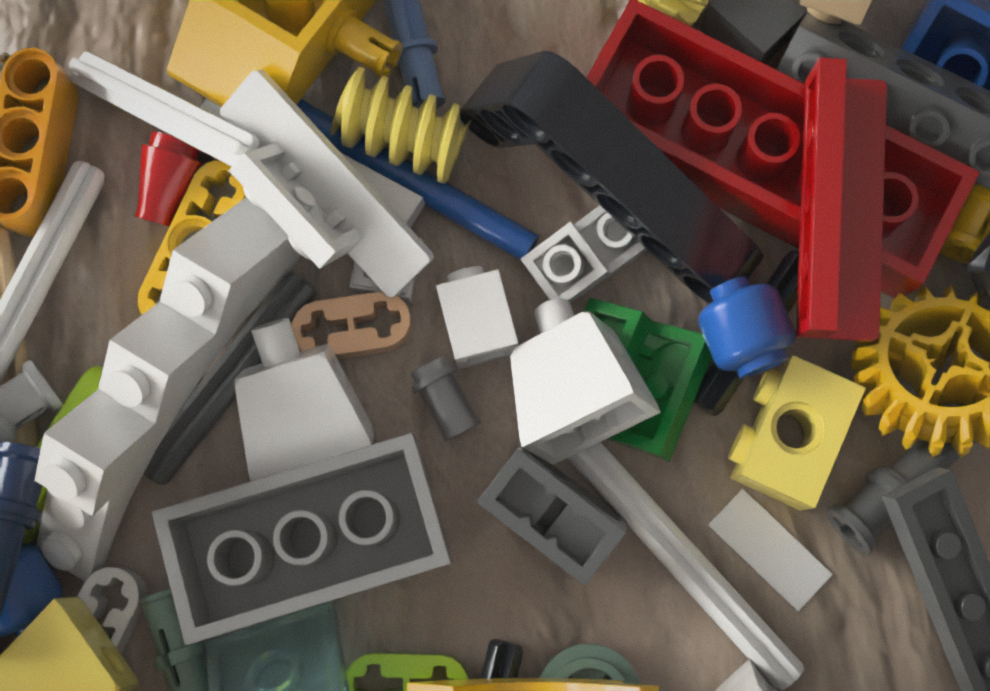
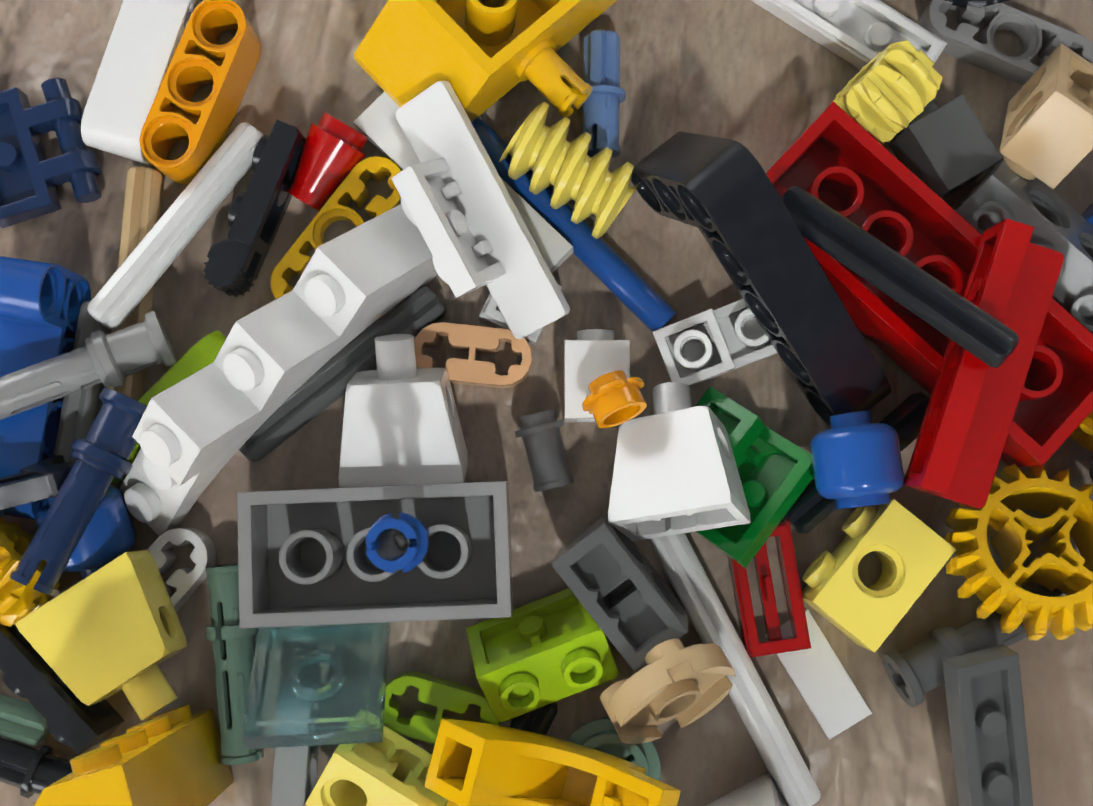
camera: 10 degrees right, 5 degrees up
(109, 244) = (257, 213): none -> black hinge
(162, 109) = (340, 94): white axle -> none
(303, 498) = (386, 554): none -> blue pin
(490, 599) = (539, 655): none -> lime bracket
(497, 327) = (614, 399): none -> light orange plate
(626, 593) = (672, 685): none -> tan plate
(724, 477) = (775, 643): none -> red tile
(737, 139) = (901, 279): none -> black axle

